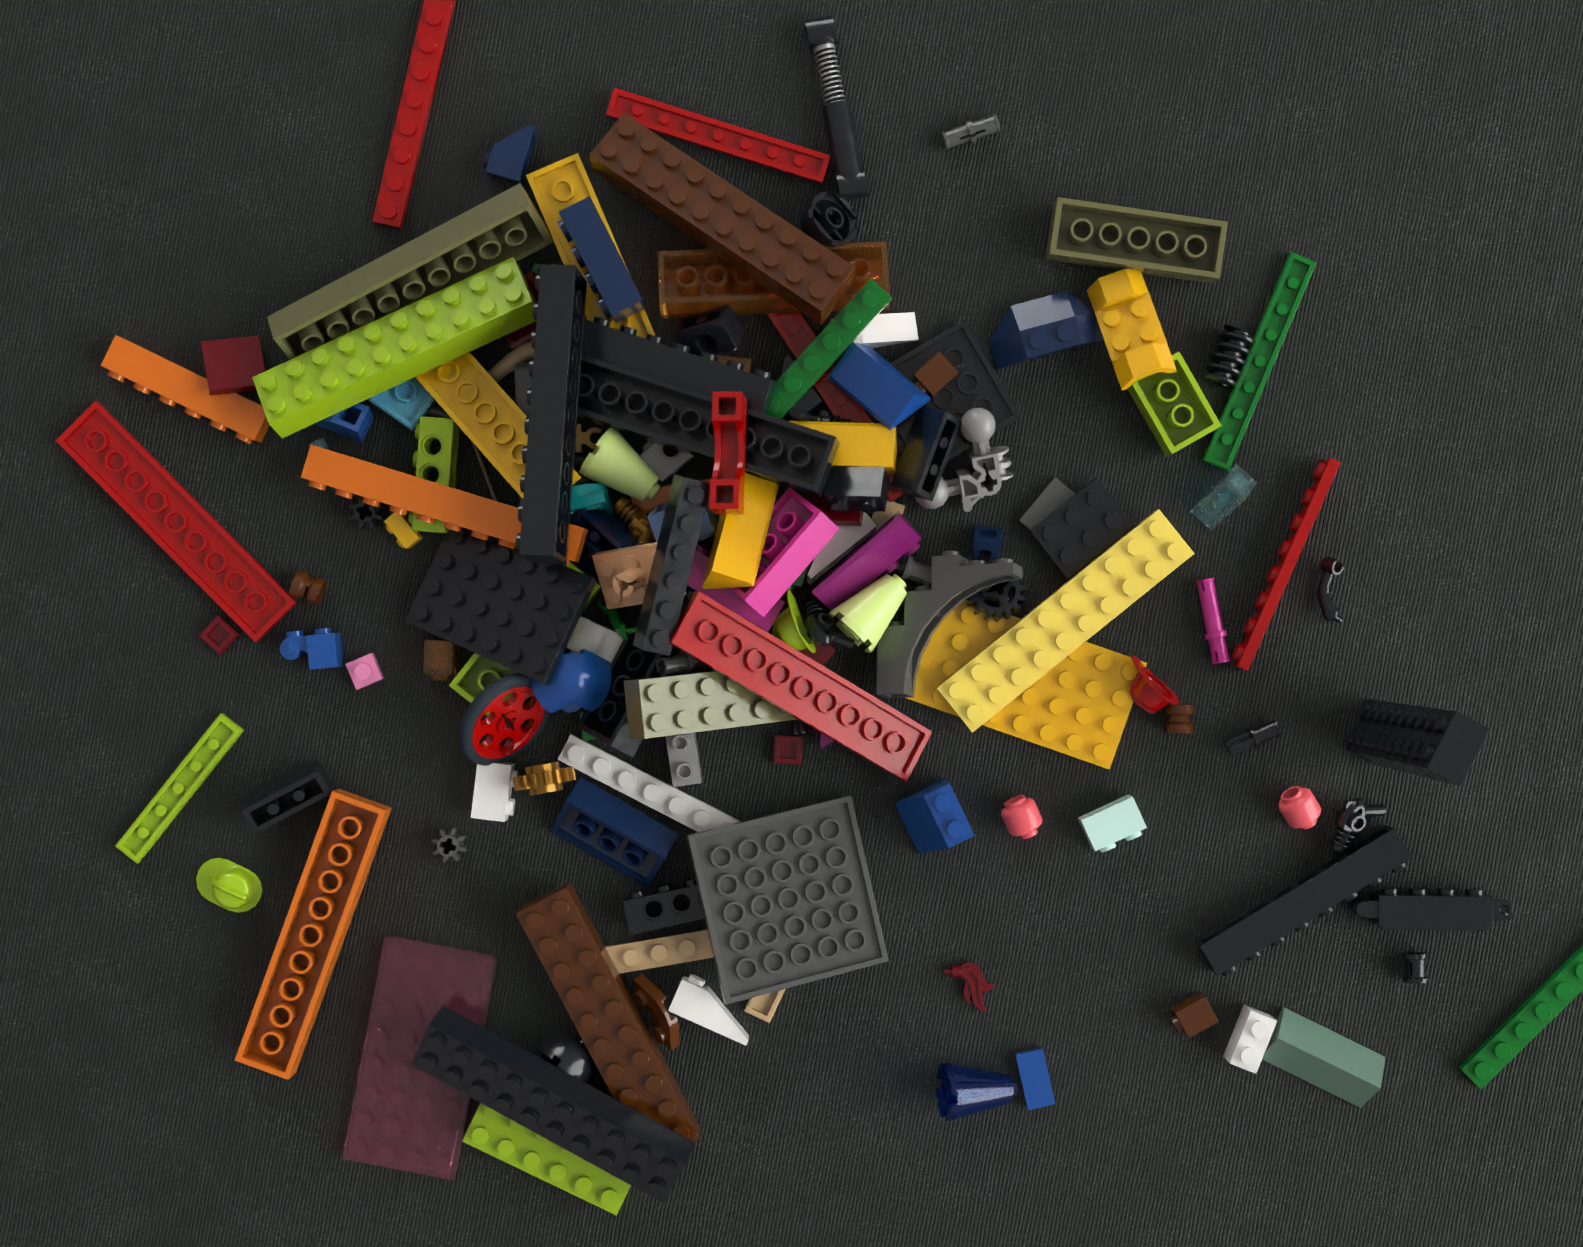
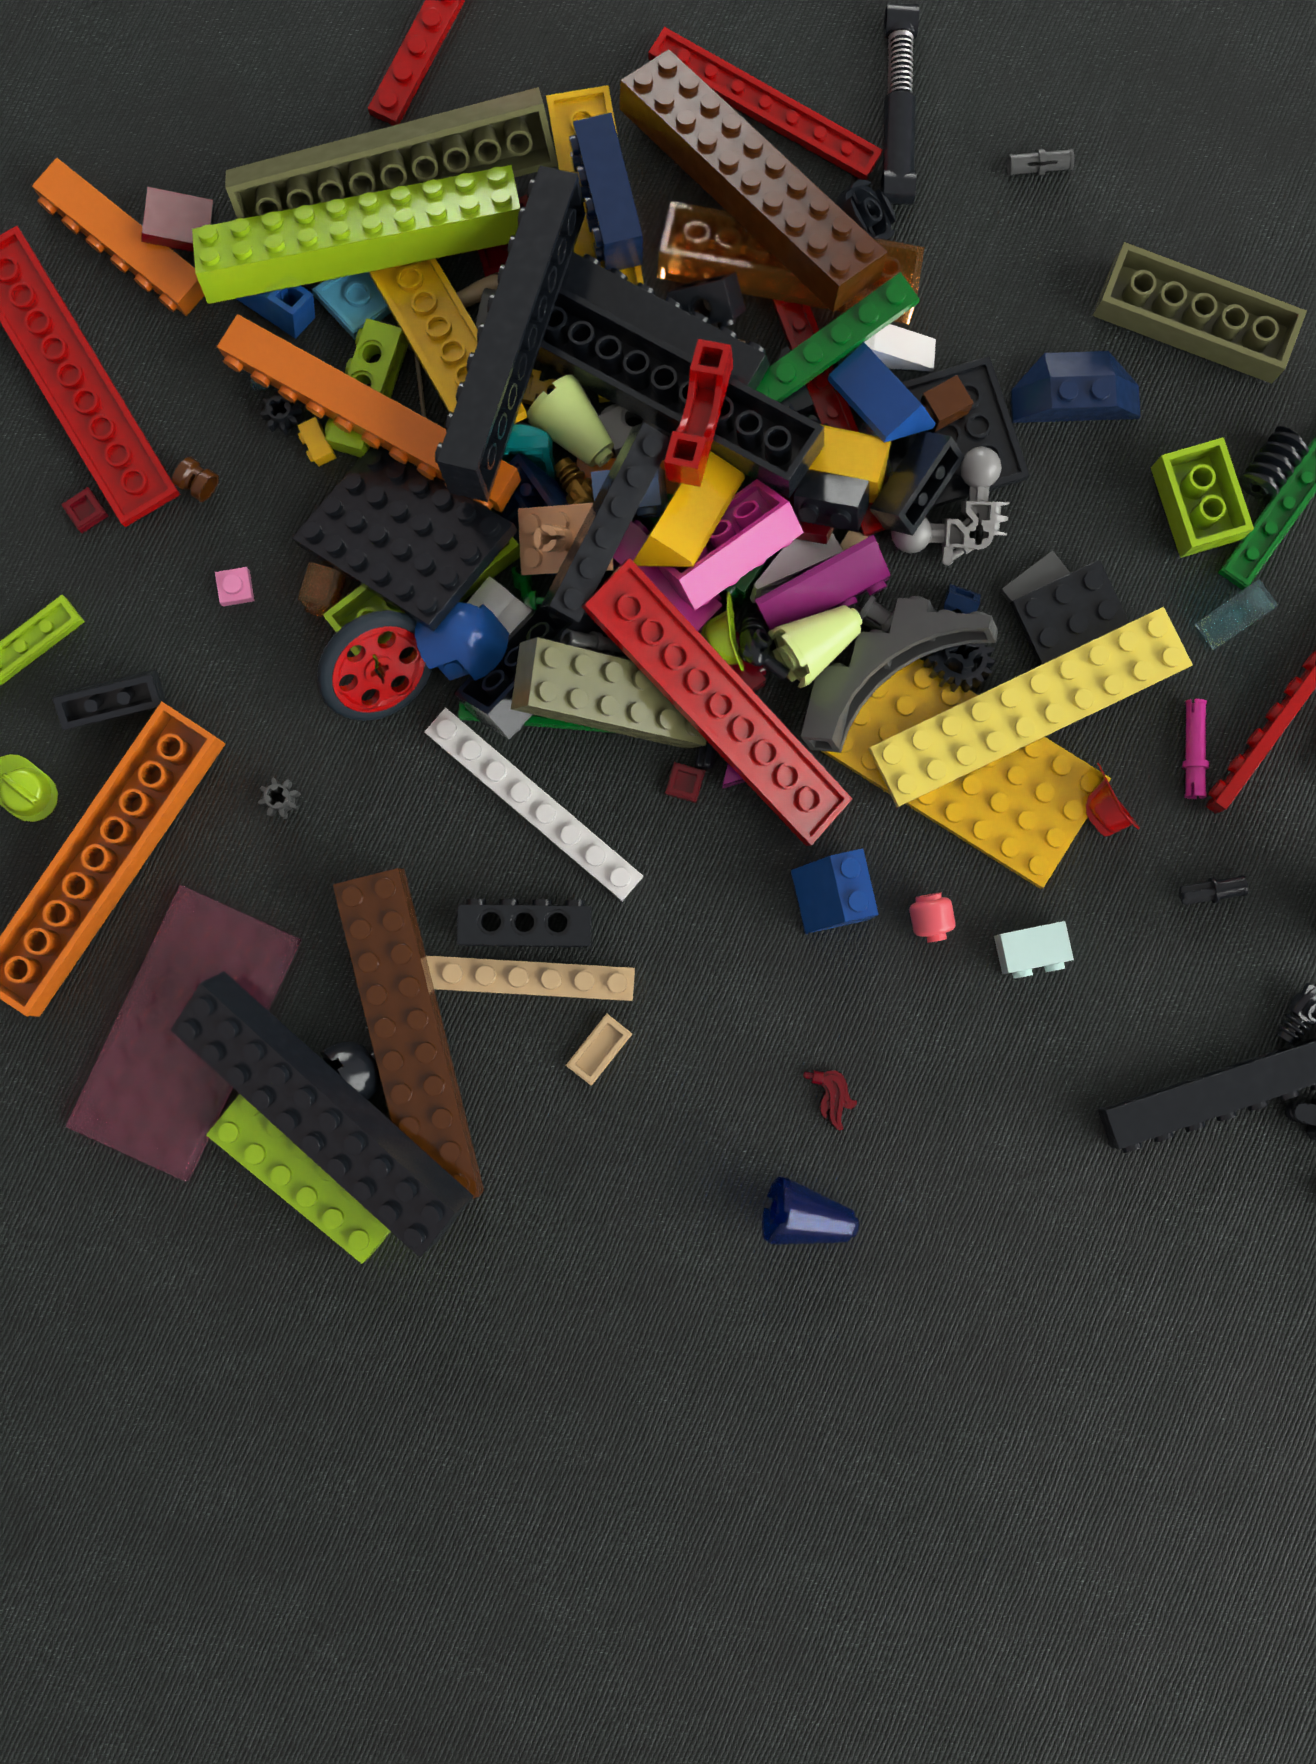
camera: 15 degrees right, 5 degrees down
(323, 648) = (193, 546): blue brick -> none
(493, 792) = (344, 749): white brick -> none
(511, 156) = (537, 68): dark blue slope -> none
(544, 778) = (403, 744): pearl gold gear -> none
(614, 832) = (467, 827): dark blue slope -> none
(651, 998) = (471, 1057): reddish brown plate -> none
(684, 759) = (566, 759): light grey brick -> none
(702, 1006) = (519, 1047): white slope -> none
(787, 899) = (645, 945): dark grey plate -> none
(1035, 1078) = (880, 1222): blue tile -> none
(1130, 326) = (1172, 400): yellow piece -> none
(1179, 718) = (1134, 851): reddish brown wheel -> none
(1193, 1015) = (1080, 1191): reddish brown brick -> none
(1250, 1039) = (1140, 1233): white brick -> none
(1299, 807) = (1251, 980): coral head -> none
(1325, 1058) = (1219, 1278): sand green slope -> none

